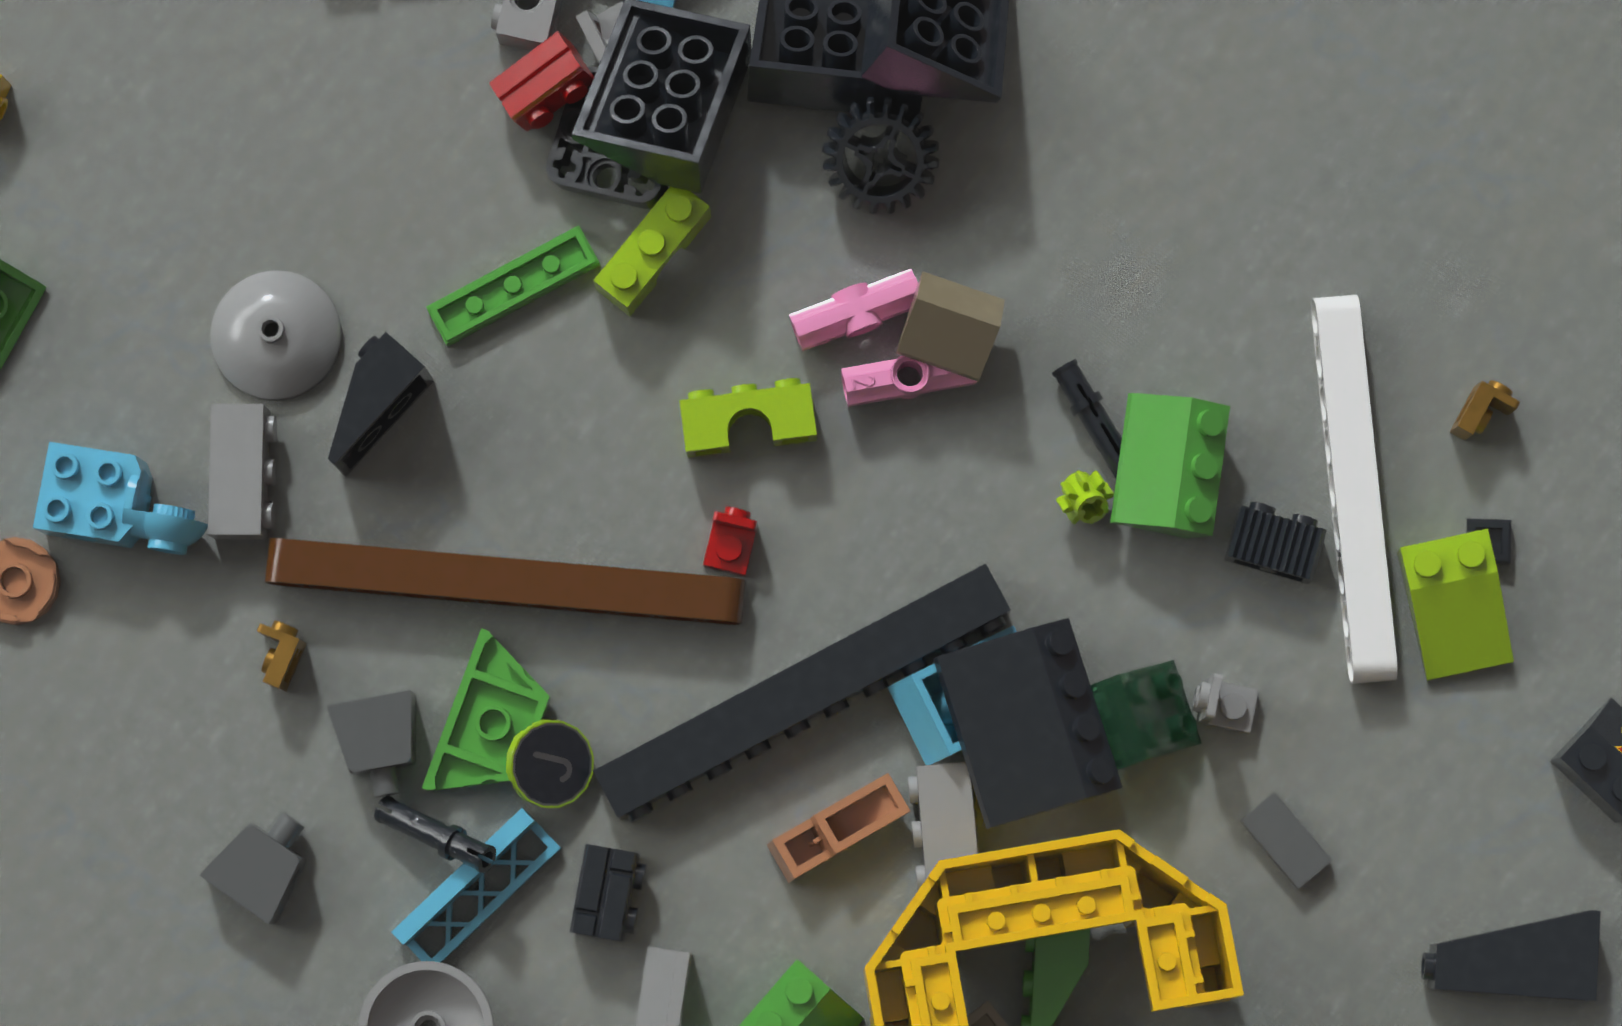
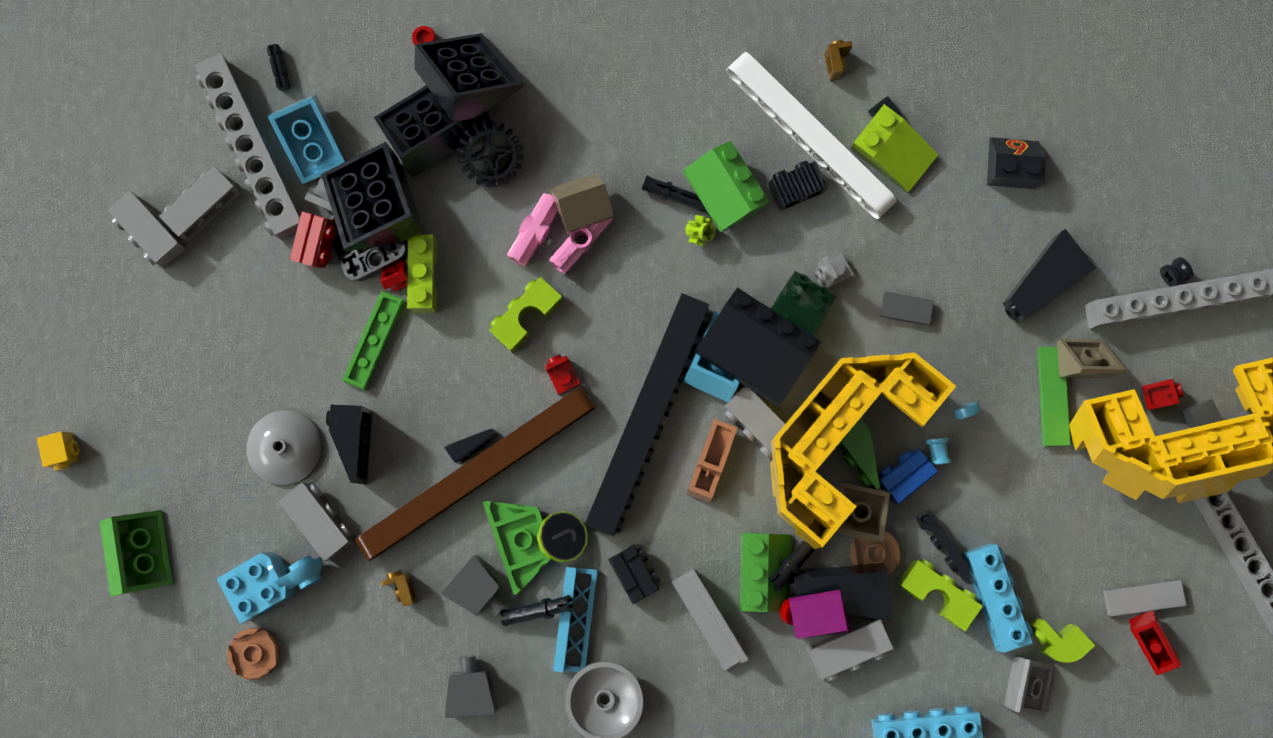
camera: 40 degrees left, 0 degrees up
(519, 536) = (465, 448): none -> black slope
(612, 222) = (395, 276): none -> red bracket

